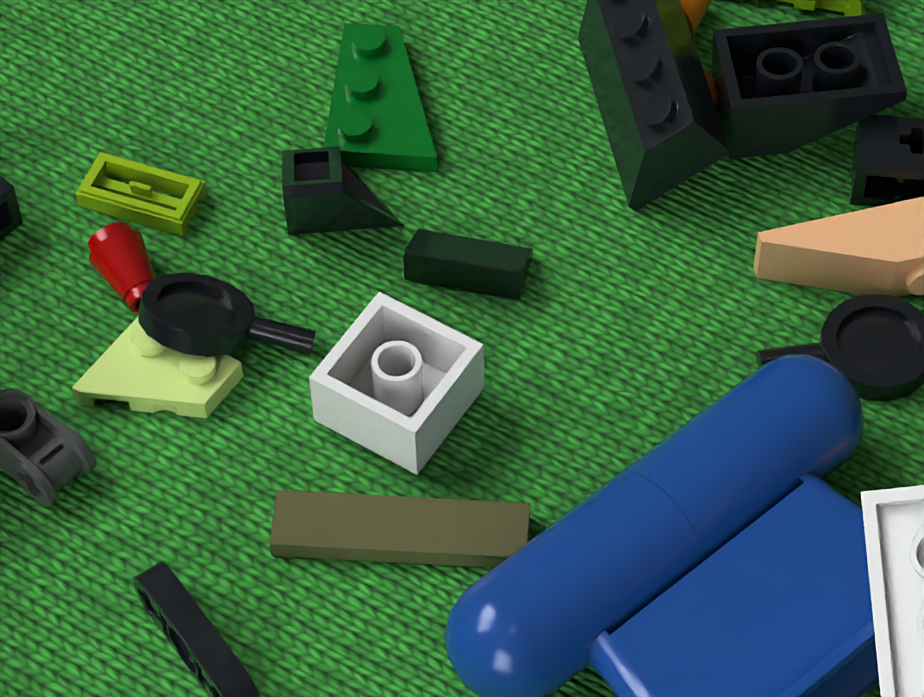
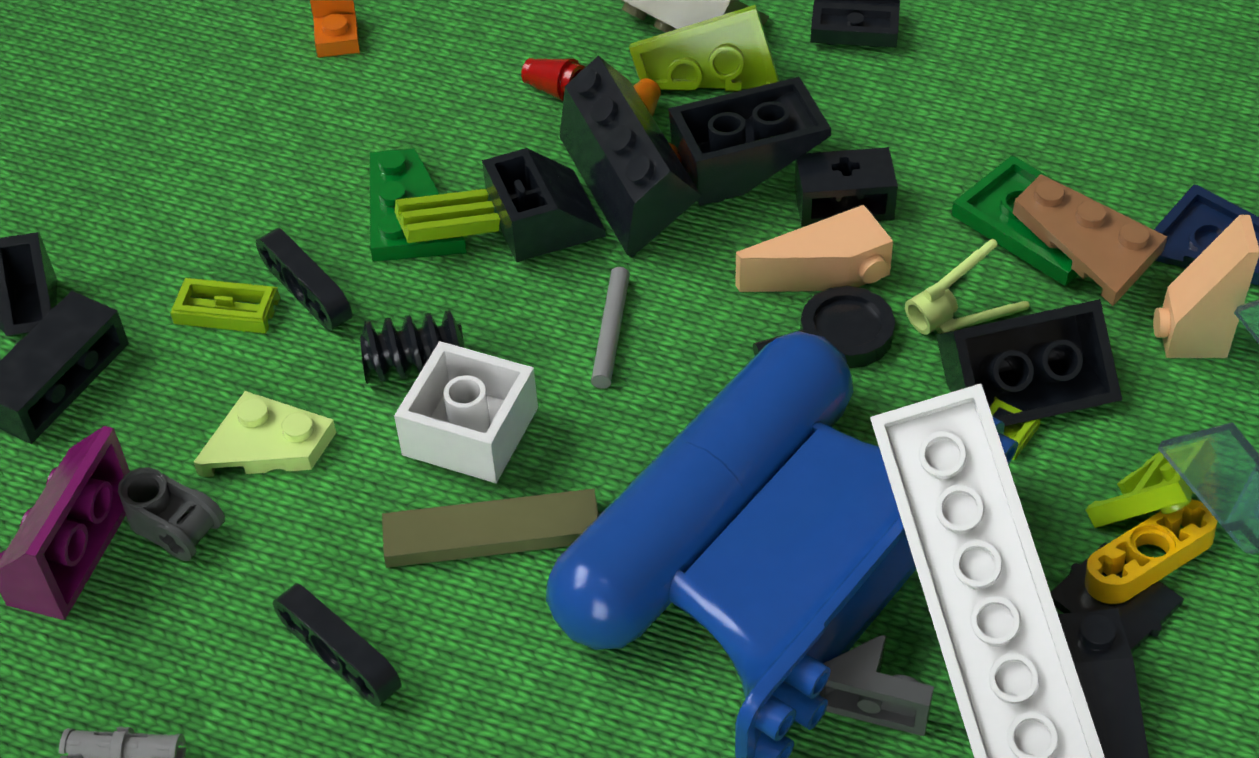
camera: 10 degrees left, 5 degrees down
(122, 261) = (221, 359): red cone -> none
(210, 317) = (302, 388): black piece -> none
(238, 177) = (304, 279): none -> black beam
(328, 195) = (380, 282): black slope -> none
(343, 285) = (407, 346): none -> black piece
(419, 116) = (446, 215): none -> lime tile
(467, 263) = (506, 316): black slope -> none
(535, 127) = (539, 204): none -> black slope
(590, 299) = (610, 328): none -> light grey bar

